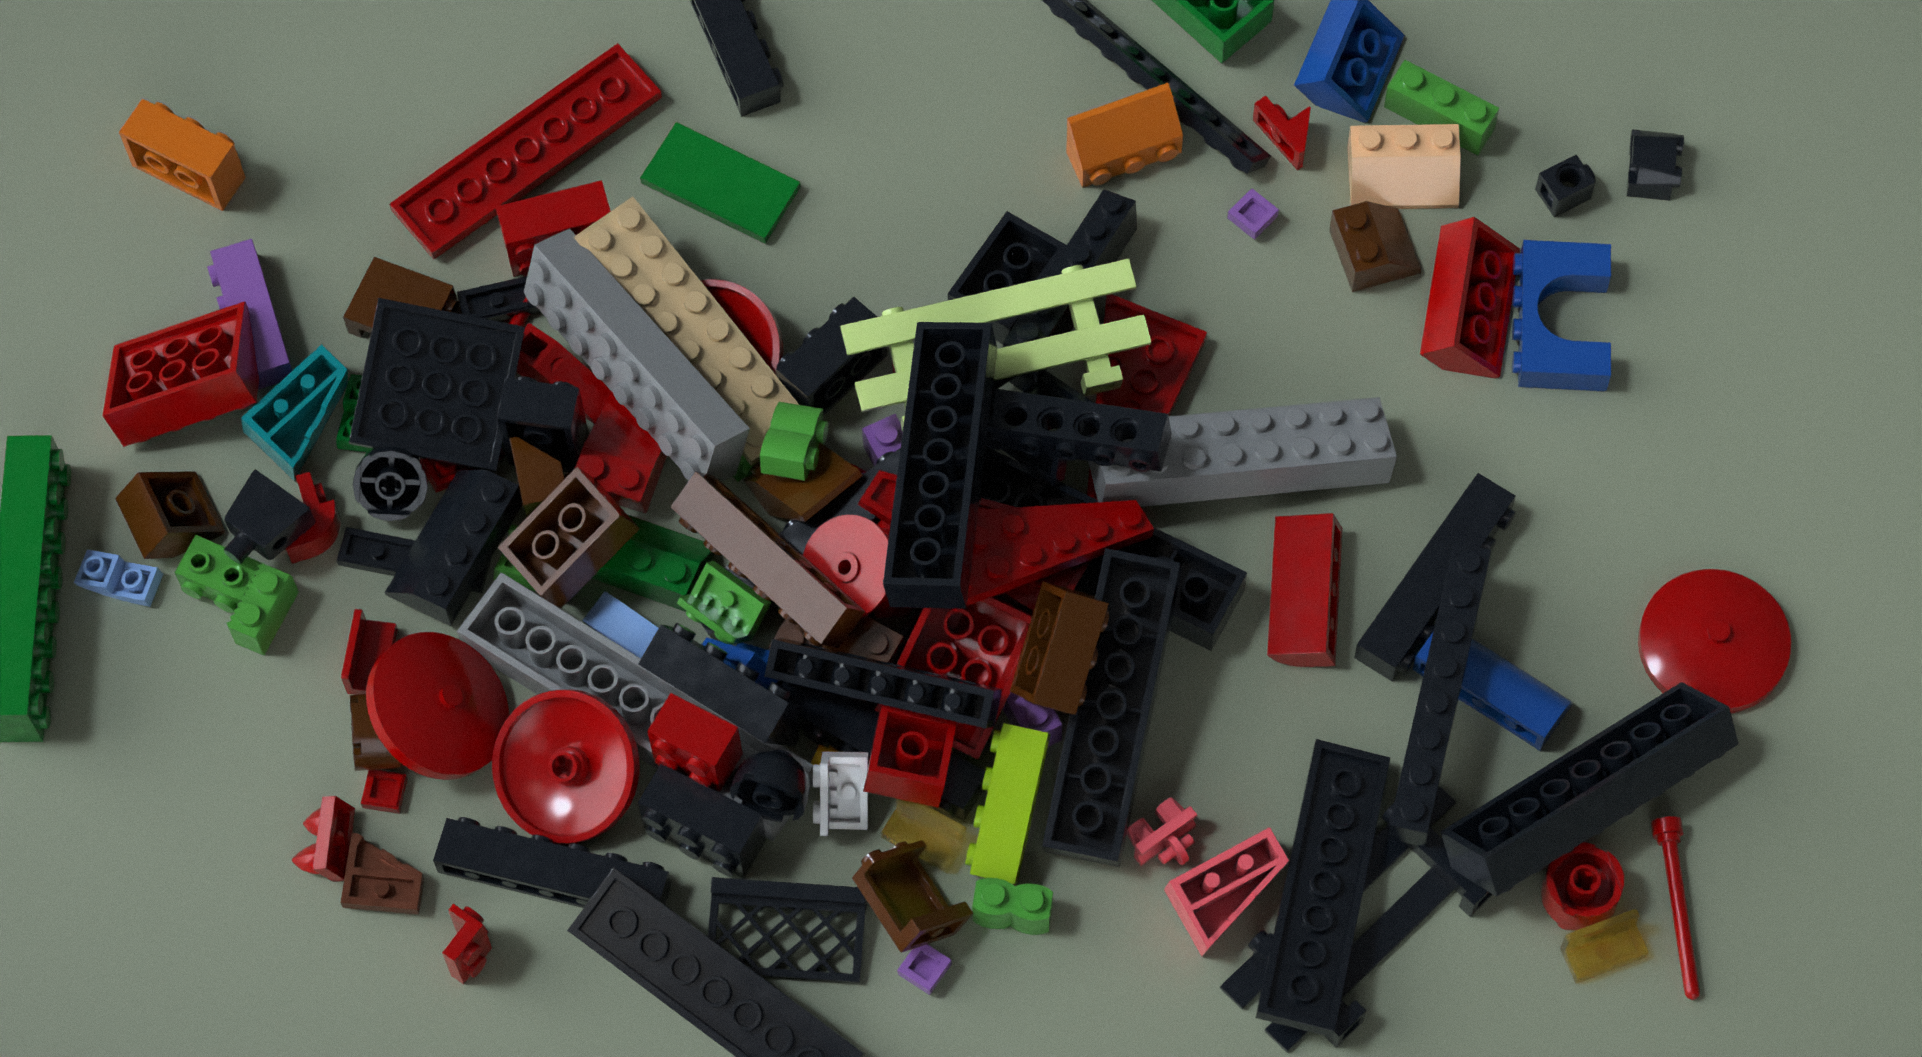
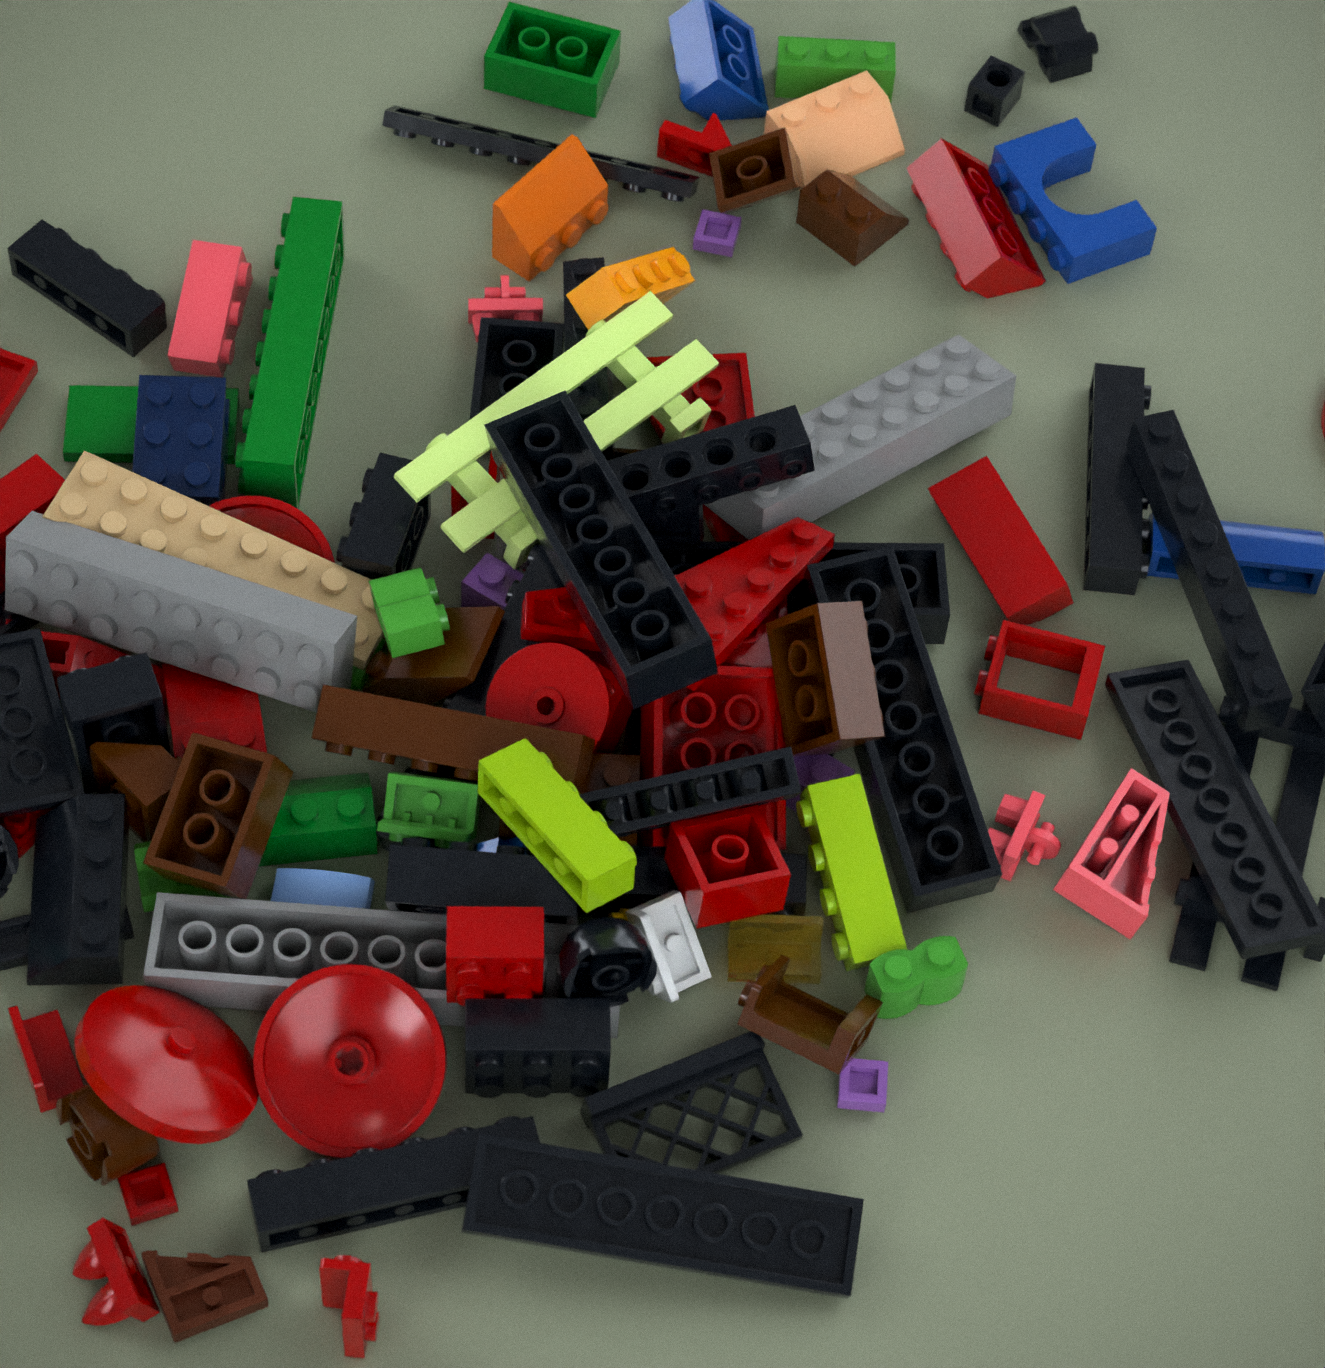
camera: 35 degrees left, 10 degrees down
(721, 217) = (183, 434): none -> dark blue torso
(782, 669) = (557, 824): none -> lime brick
(812, 106) = (210, 309): none -> coral wedge
(850, 175) = (293, 352): none -> green brick
(1054, 219) = (504, 303): none -> coral hips
(1133, 240) = (625, 282): none -> light orange brick
(1293, 741) = (1045, 649): none -> red window
(1306, 179) = (755, 171): none -> reddish brown slope

